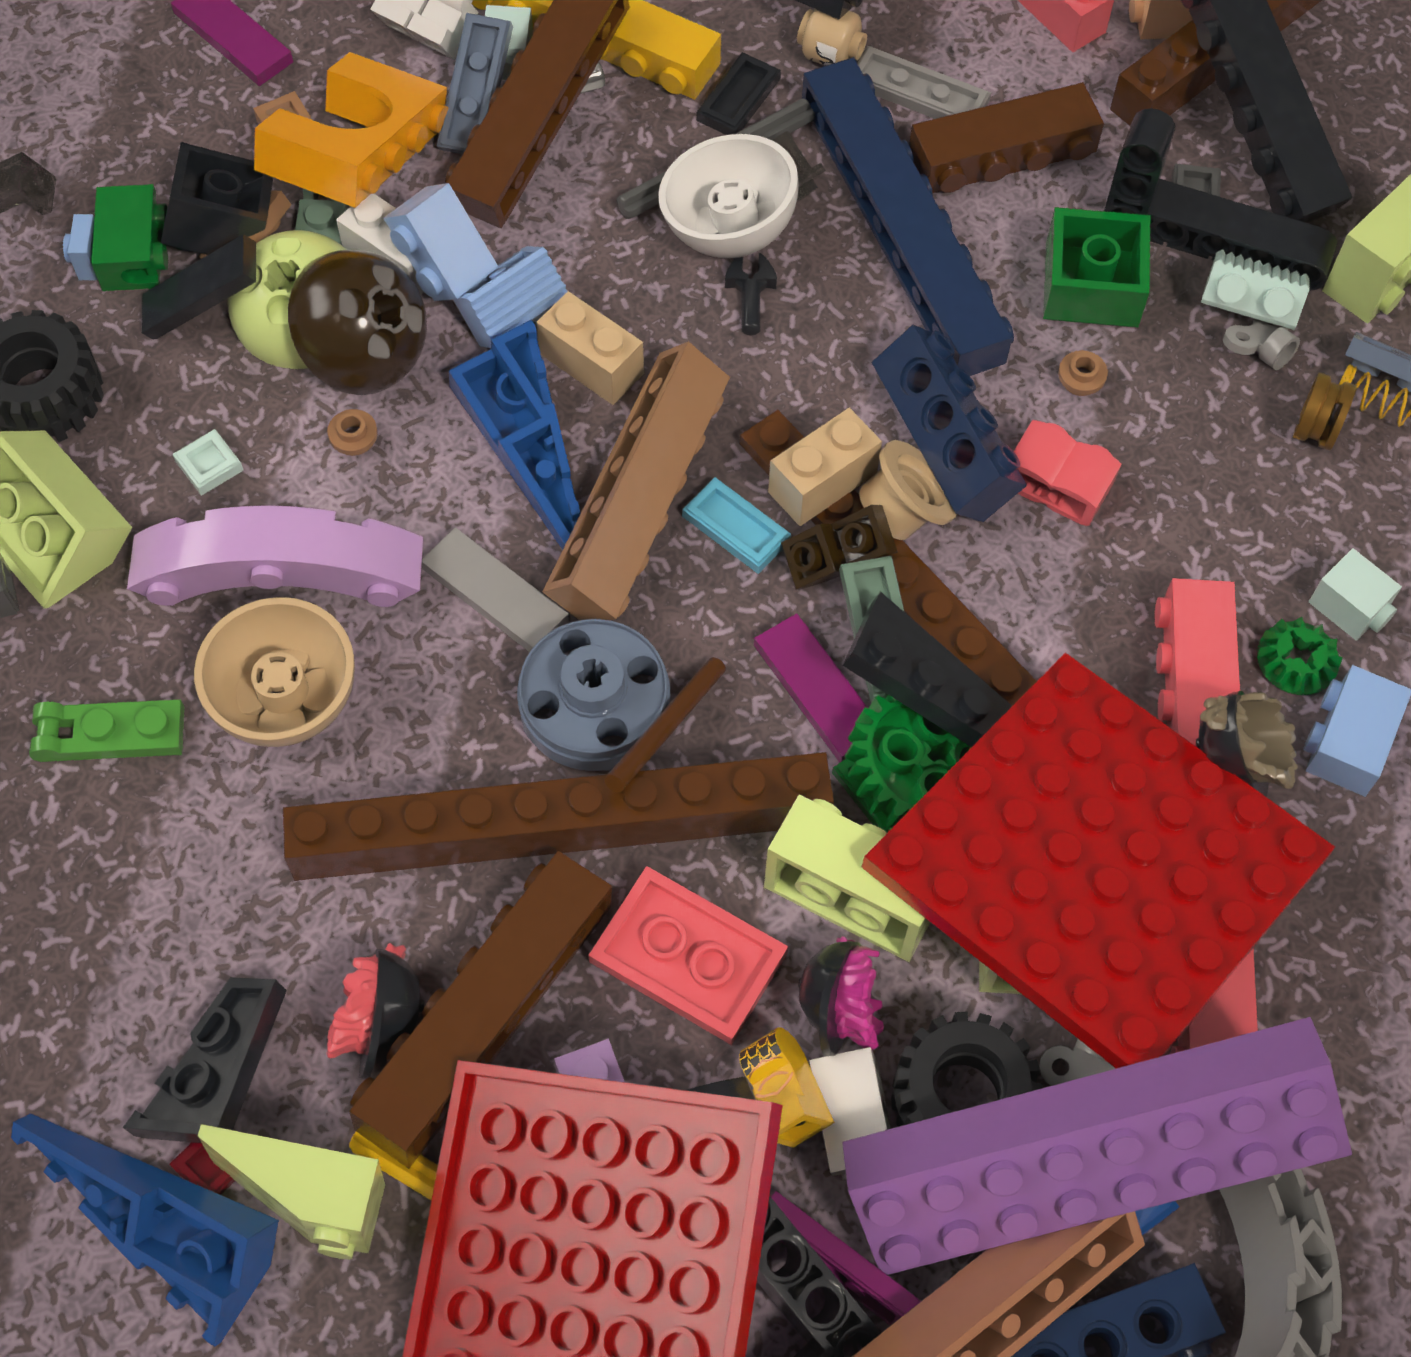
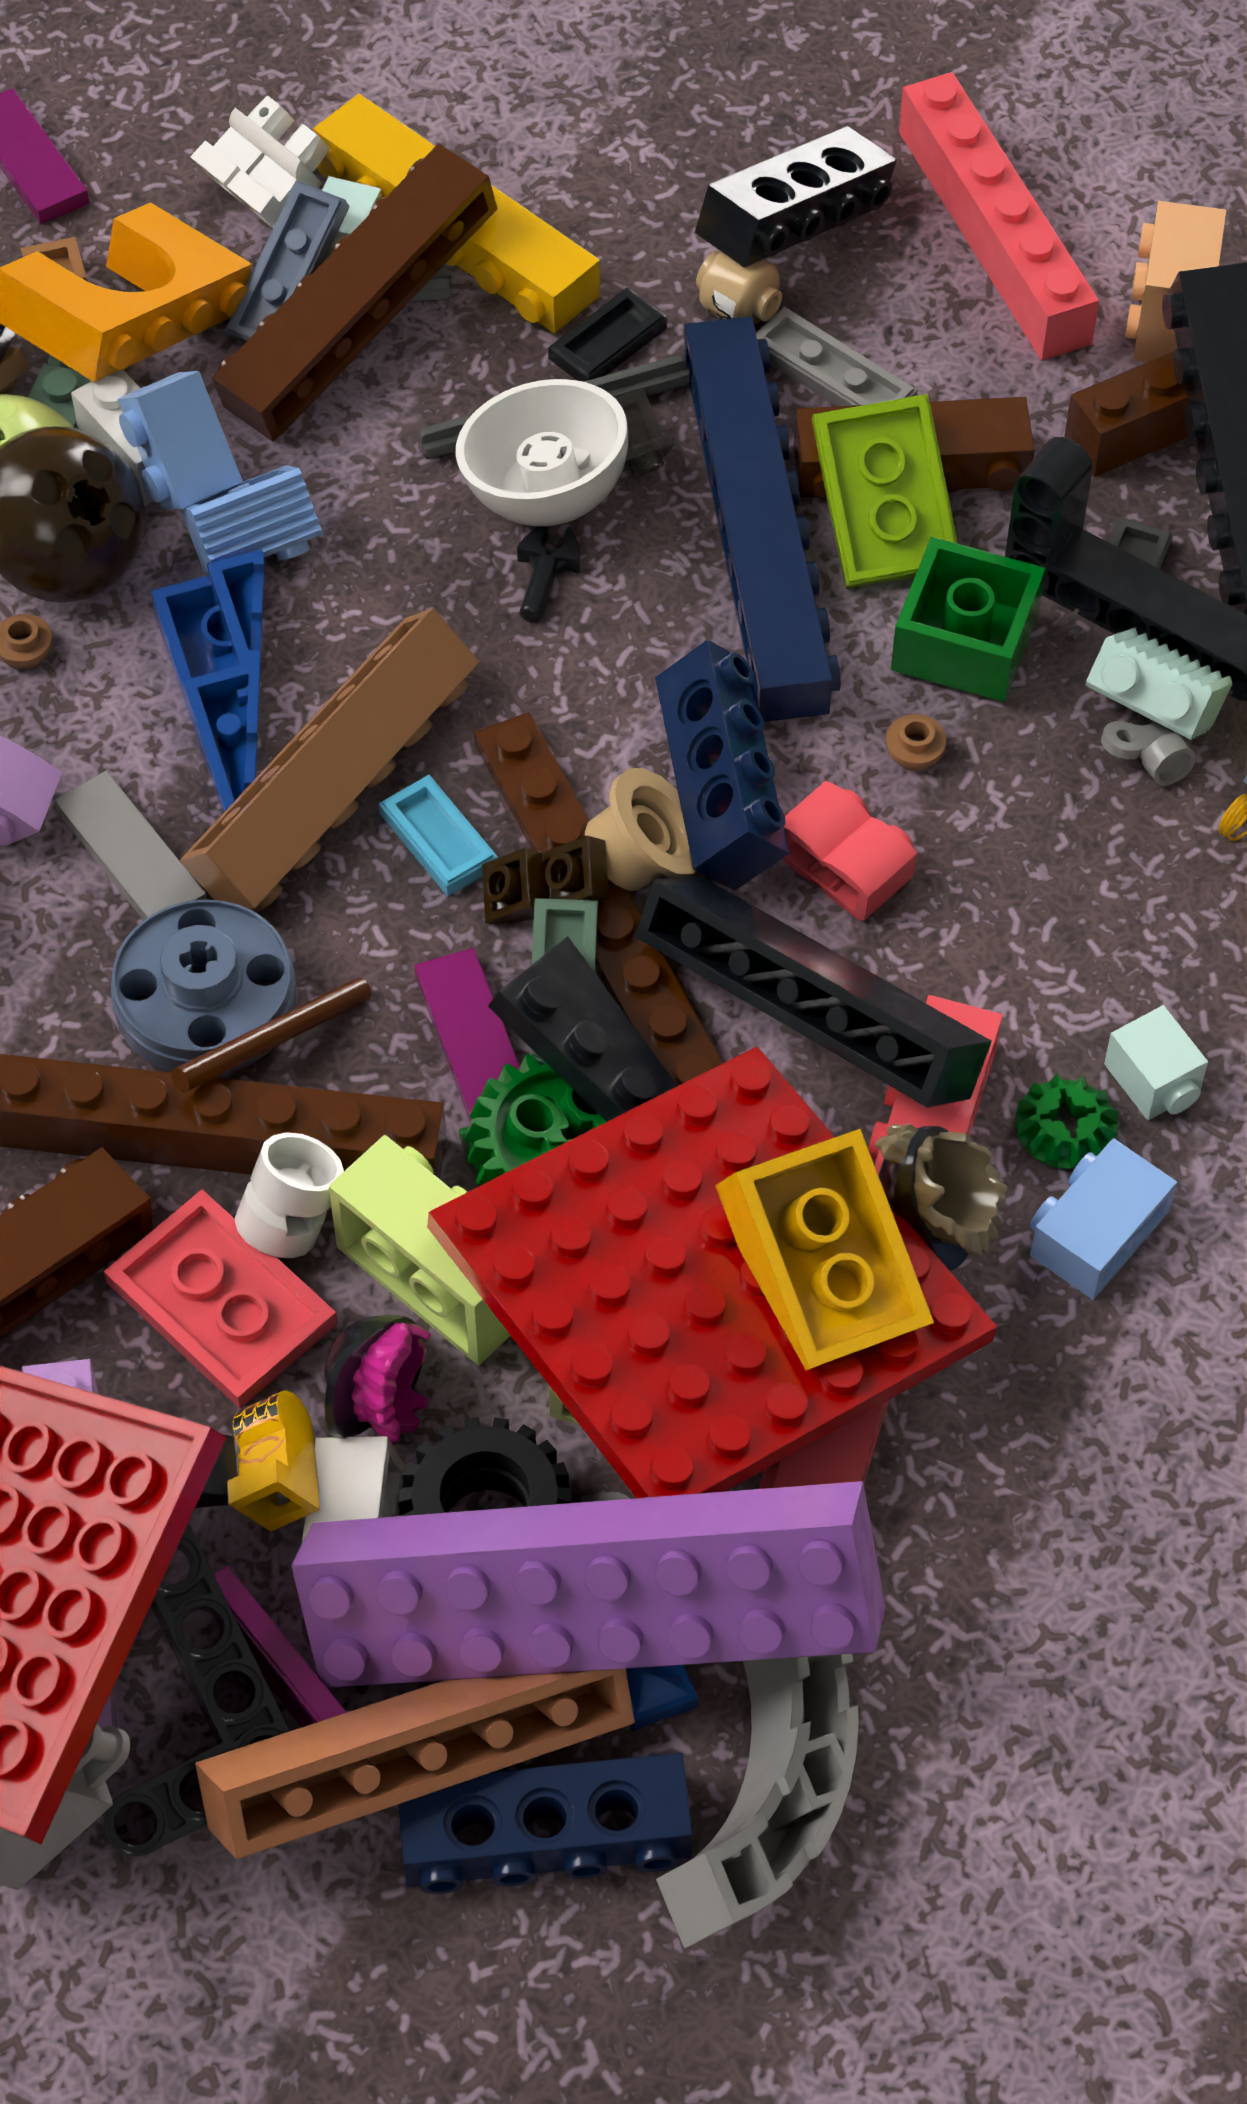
camera: 15 degrees right, 5 degrees down
(590, 347) = (327, 597): tan brick -> none
(724, 857) = (288, 1195): none -> white wheel
(824, 466) = (549, 782): tan brick -> none
(999, 175) = (883, 487): none -> lime tile
(1089, 595) = (814, 990): none -> black brick
(1196, 817) = (825, 1249): none -> yellow slope
(1319, 409) = (1192, 842): pearl gold wheel -> none

